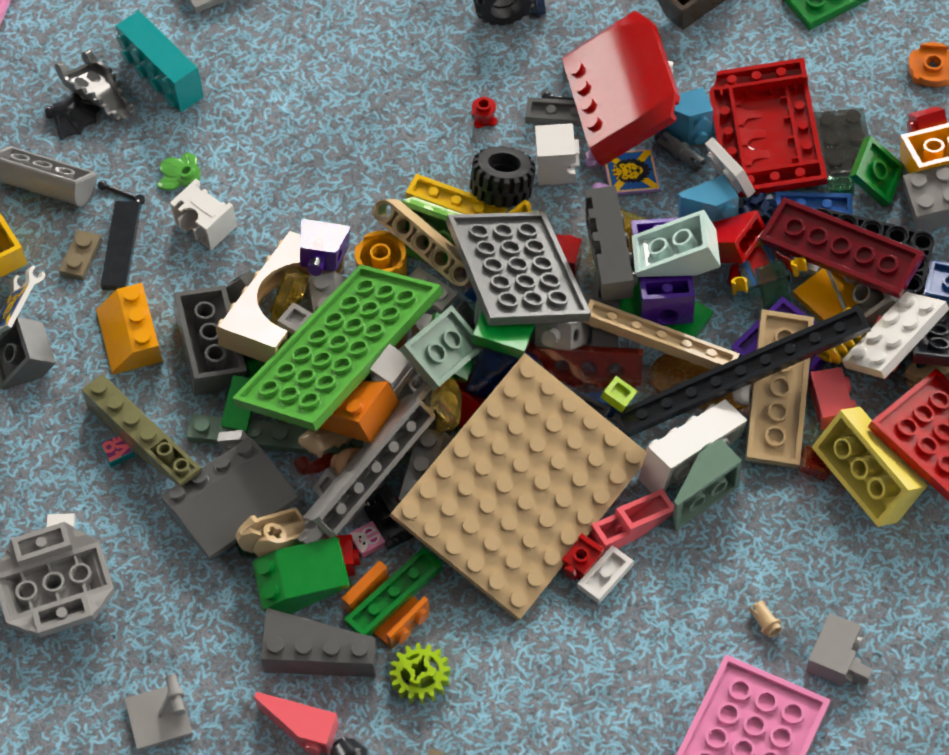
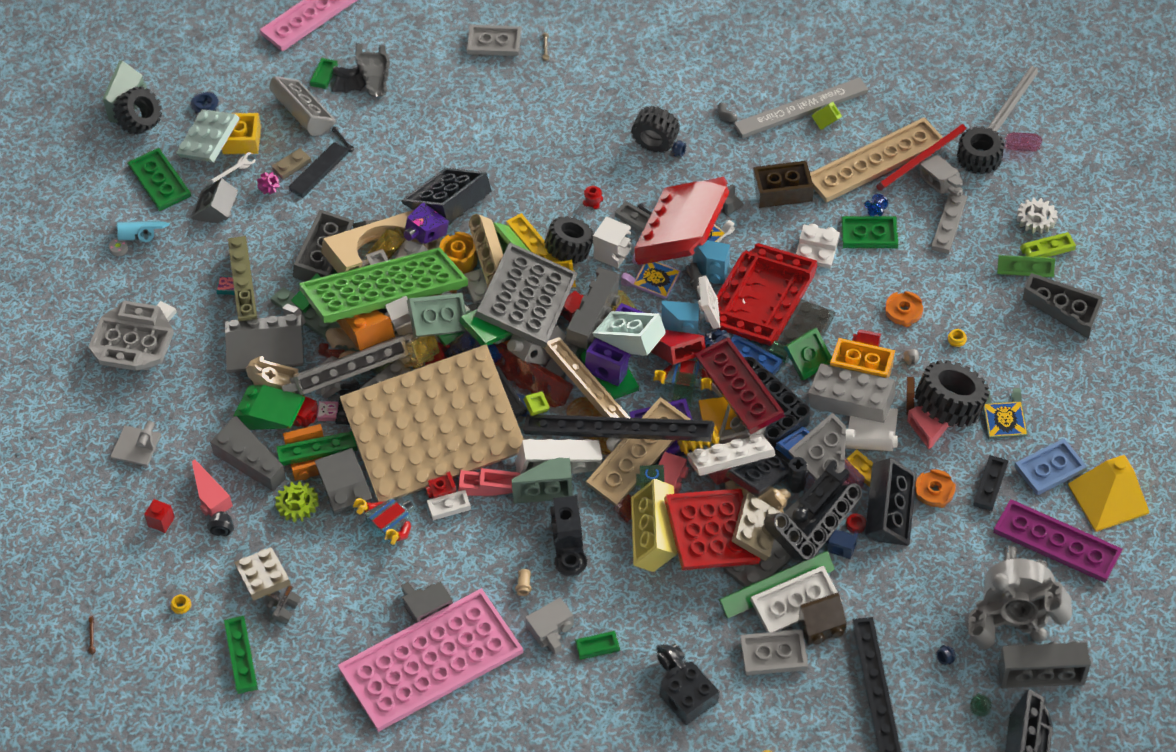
camera: 30 degrees right, 5 degrees down
(33, 122) = (323, 73): none -> green tile
(73, 294) = (268, 183): none -> dark pink gear
(128, 330) = (286, 220): light orange slope -> none
(159, 61) = (417, 71): teal brick -> none
(179, 172) = (384, 143): bright green plate -> none
(203, 214) = (375, 174): white piece -> none
(312, 189) = (451, 192): none -> black slope
(463, 616) = (343, 481): none -> dark grey slope
(550, 633) = (387, 518): none -> torso
(673, 710) = (425, 602): none -> dark grey hinge
(780, 533) = (567, 536): none -> black brick
(782, 38) = (818, 244): none -> white plate
(824, 409) = (648, 473): none -> clear green brick
(905, 646) = (597, 645): none -> green tile

